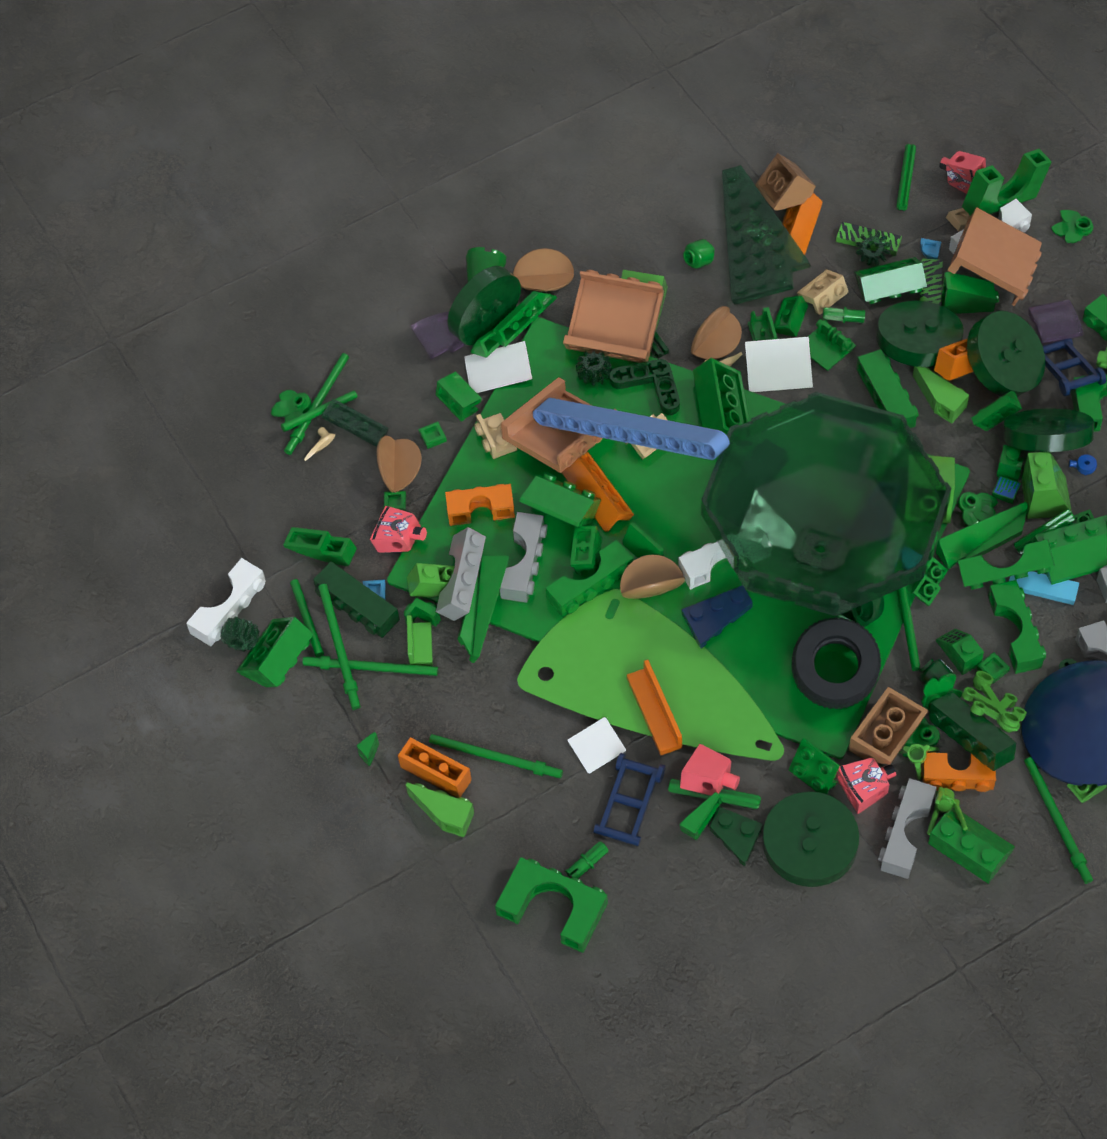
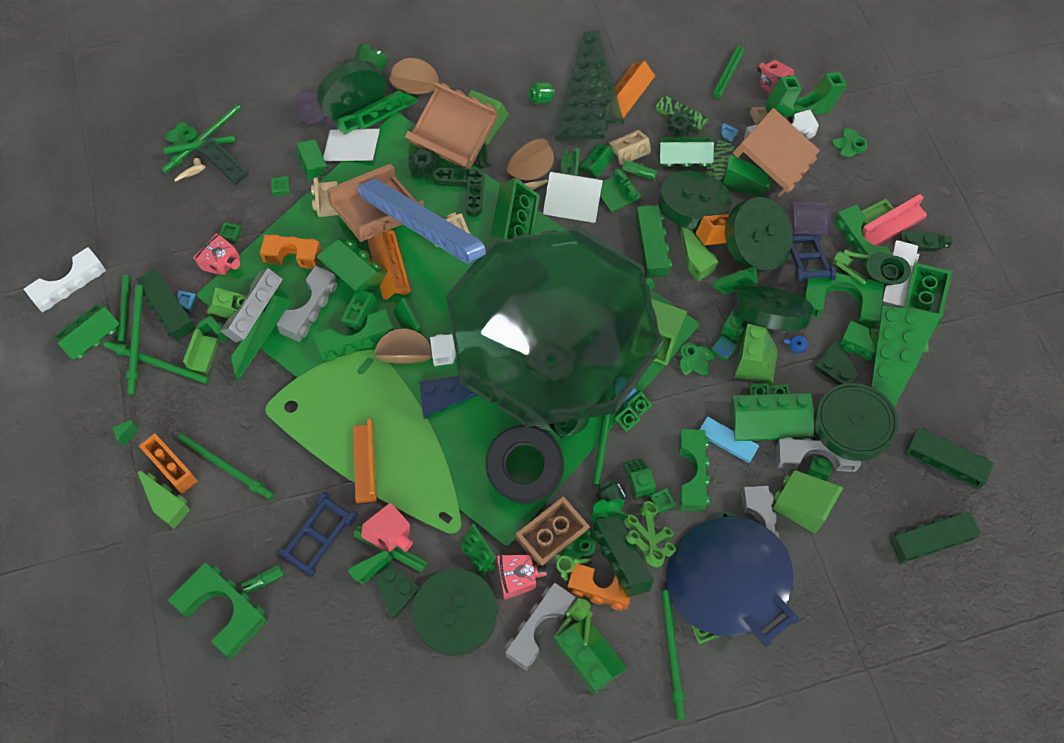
camera: 10 degrees right, 5 degrees up
(239, 634) = (62, 308): clear green gear -> none
(320, 545) = (157, 253): green slope -> none
(398, 462) = (240, 200): medium nougat piece -> none
(596, 745) = (309, 479): white sticker -> none
(784, 184) = (627, 53): medium nougat slope -> none
(982, 536) = (690, 384): green wedge -> none
(1035, 557) = (676, 413): green arch -> none
(1055, 523) = (755, 389): green axle -> none

